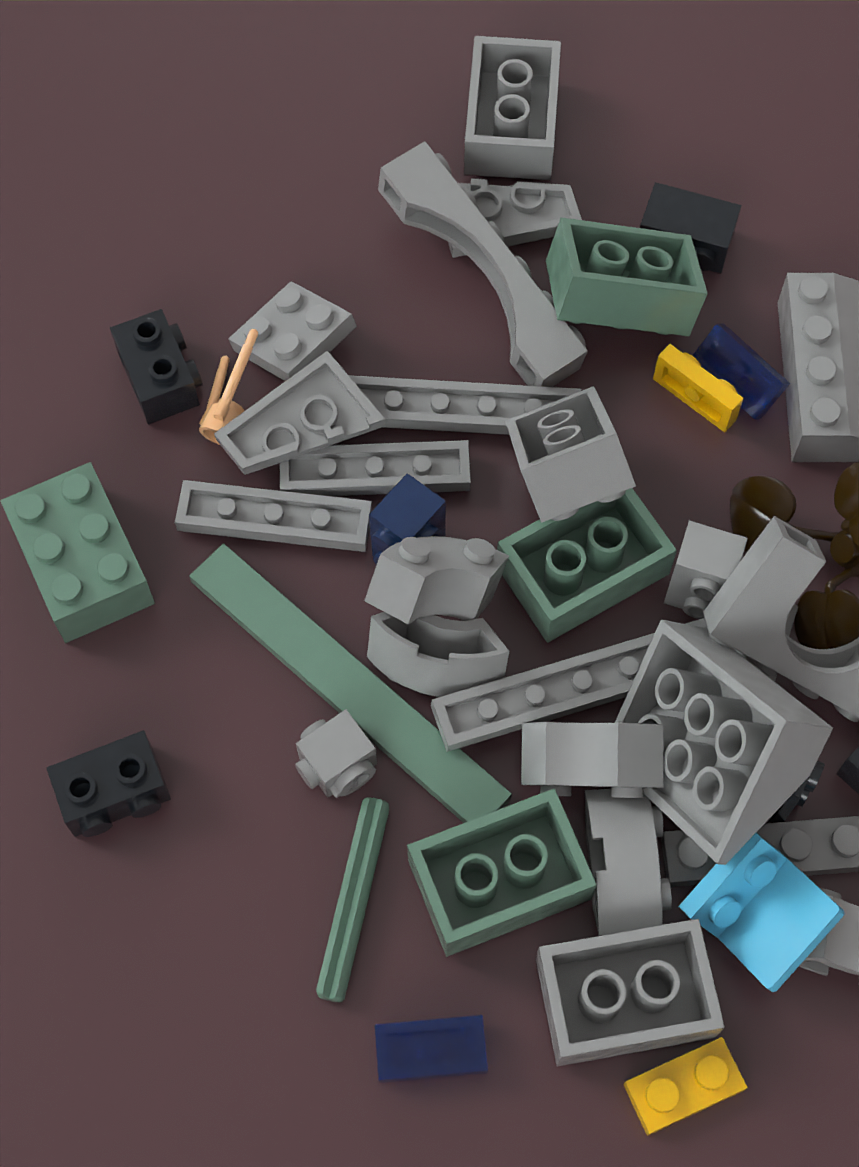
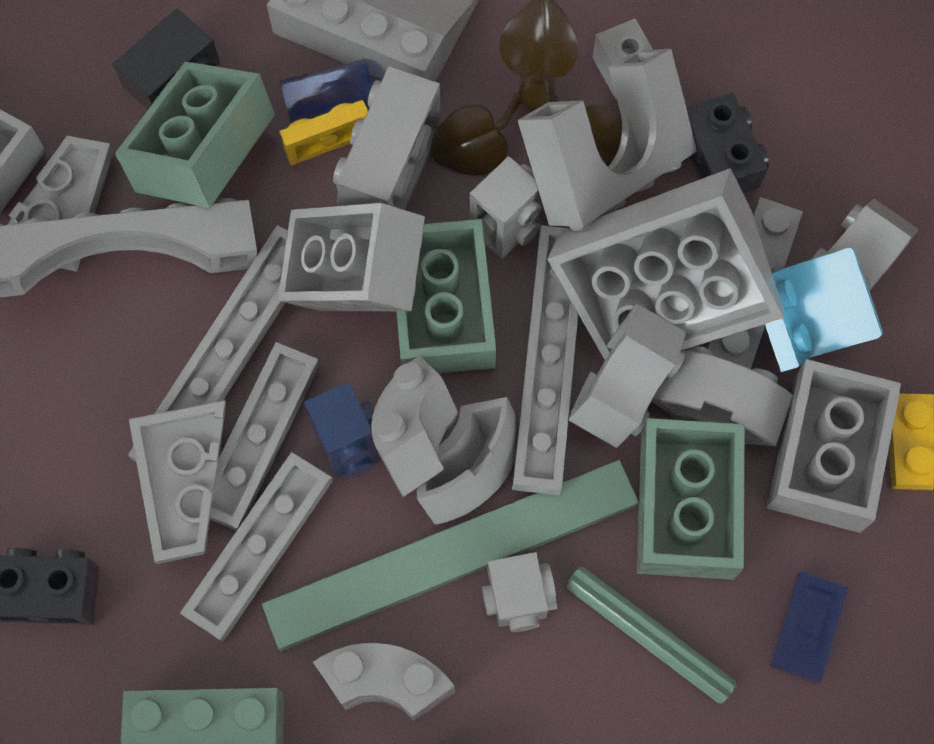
camera: 65 degrees left, 5 degrees up
(205, 679) = (384, 675): none -> light grey brick
(223, 410) = (131, 545): light nougat plant -> none
(293, 330) = (78, 446): light grey plate -> none
(703, 442) = (390, 141): none -> light grey brick

